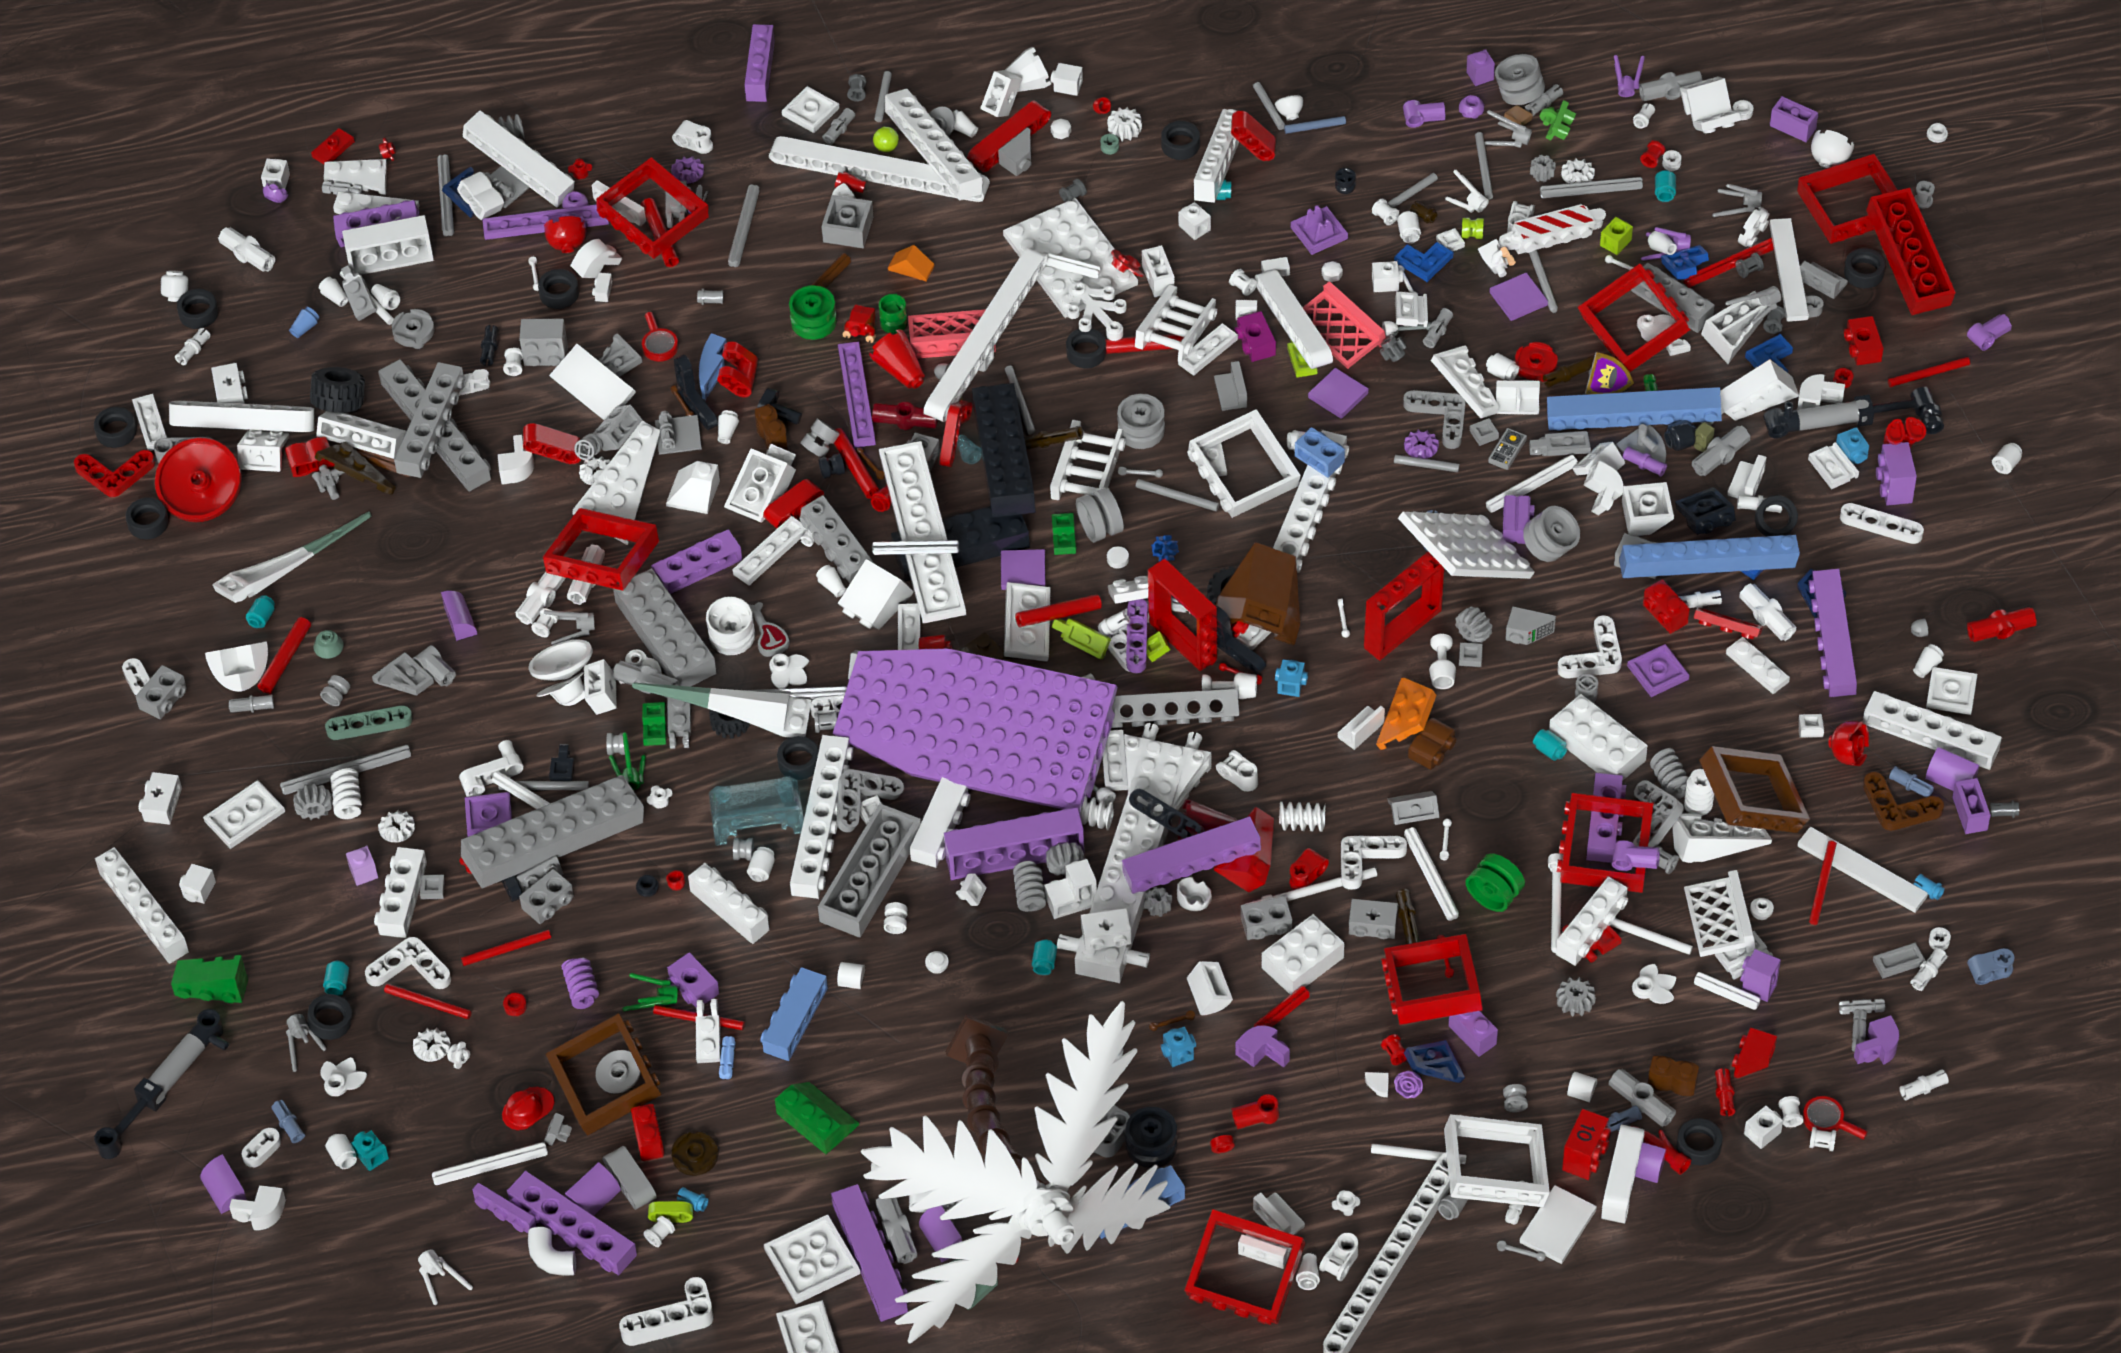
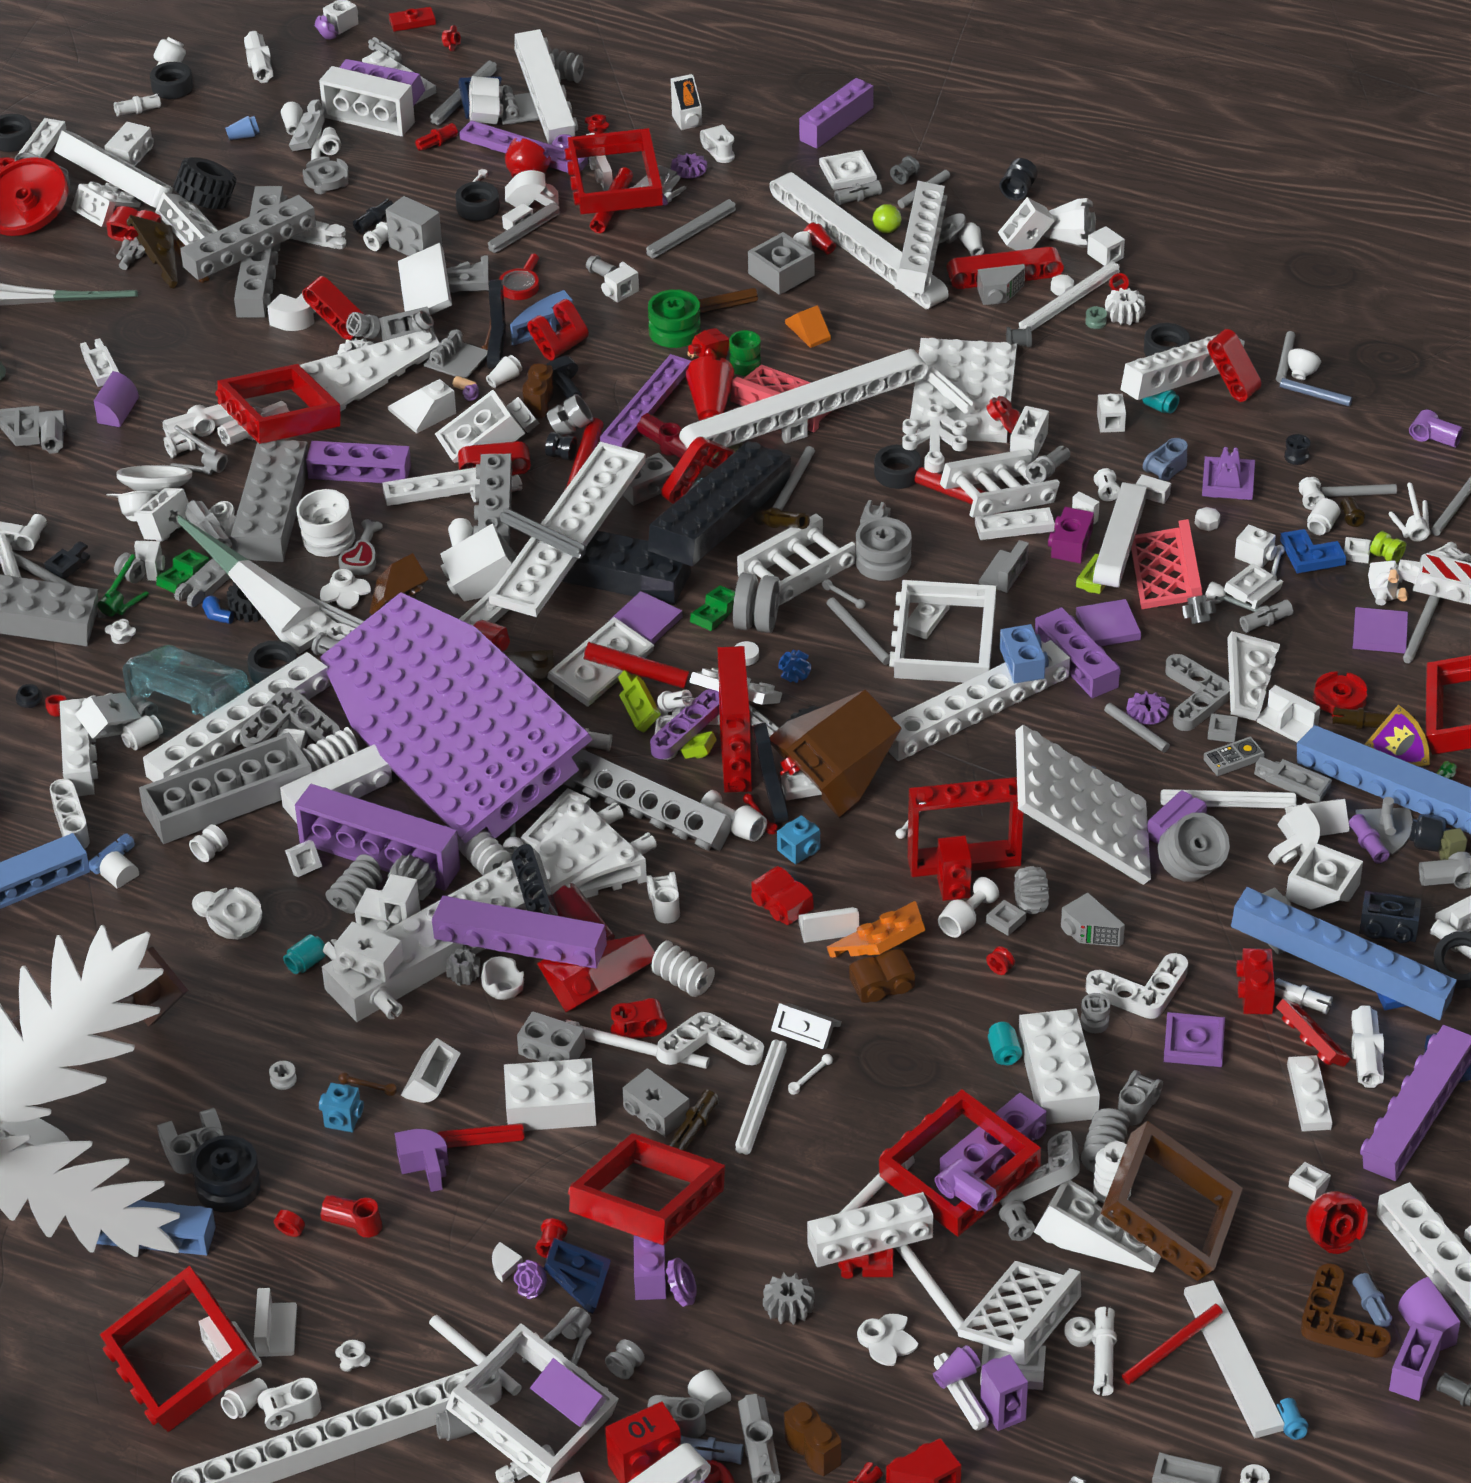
camera: 35 degrees right, 10 degrees down
(367, 173) = (413, 47): white wing -> none
(409, 589) = (98, 361): none -> white hinge
(466, 247) = (437, 137): none -> red axle
(615, 293) = (523, 227): none -> light grey axle
(623, 723) = (152, 555): none -> white bracket
(637, 420) = (422, 321): none -> light grey plate
(640, 115) = (685, 102): none -> slope
(710, 741) = (214, 612): none -> blue arm
(712, 454) = (469, 387): none -> arm
(734, 866) = (107, 714): none -> white brick
(740, 302) = (621, 283): none -> white brick
(770, 947) = (69, 810): none -> white beam
(832, 965) = (124, 843): none -> medium blue axle
(834, 646) = (400, 577): none -> reddish brown slope
(914, 797) = (331, 749): none -> white piece
(950, 52) = (1018, 179): none -> black wheel
(965, 957) = (234, 913): none -> white tile
(1075, 137) = (1070, 296): none -> white axle
(1105, 398) = (873, 511): none -> light grey tile
(1194, 292) = (1045, 465): none -> light grey pin
(1266, 237) = (1167, 459): none -> sand blue piece
(1315, 725) = (782, 895): none -> red brick
(1361, 433) = (1088, 661): none -> medium lavender brick
(1413, 639) = (954, 868): none -> red brick
(1463, 1098) = (572, 1326): none -> light grey plant
(1495, 687) = (1000, 960): none -> red bush
(1495, 882) = (807, 1135): green wheel -> none
(1502, 367) = (1298, 679): white brick -> none
(1504, 1026) = (681, 1282): none -> medium lavender gear
(1519, 1139) = (568, 1393): none -> medium lavender brick
(1569, 1113) = (686, 1412): none -> light grey piece
(1661, 731) = (1138, 1096): none -> light grey piece
(1719, 975) = (958, 1366): none -> medium lavender cone
(1782, 906) = (1104, 1340): none -> white pin

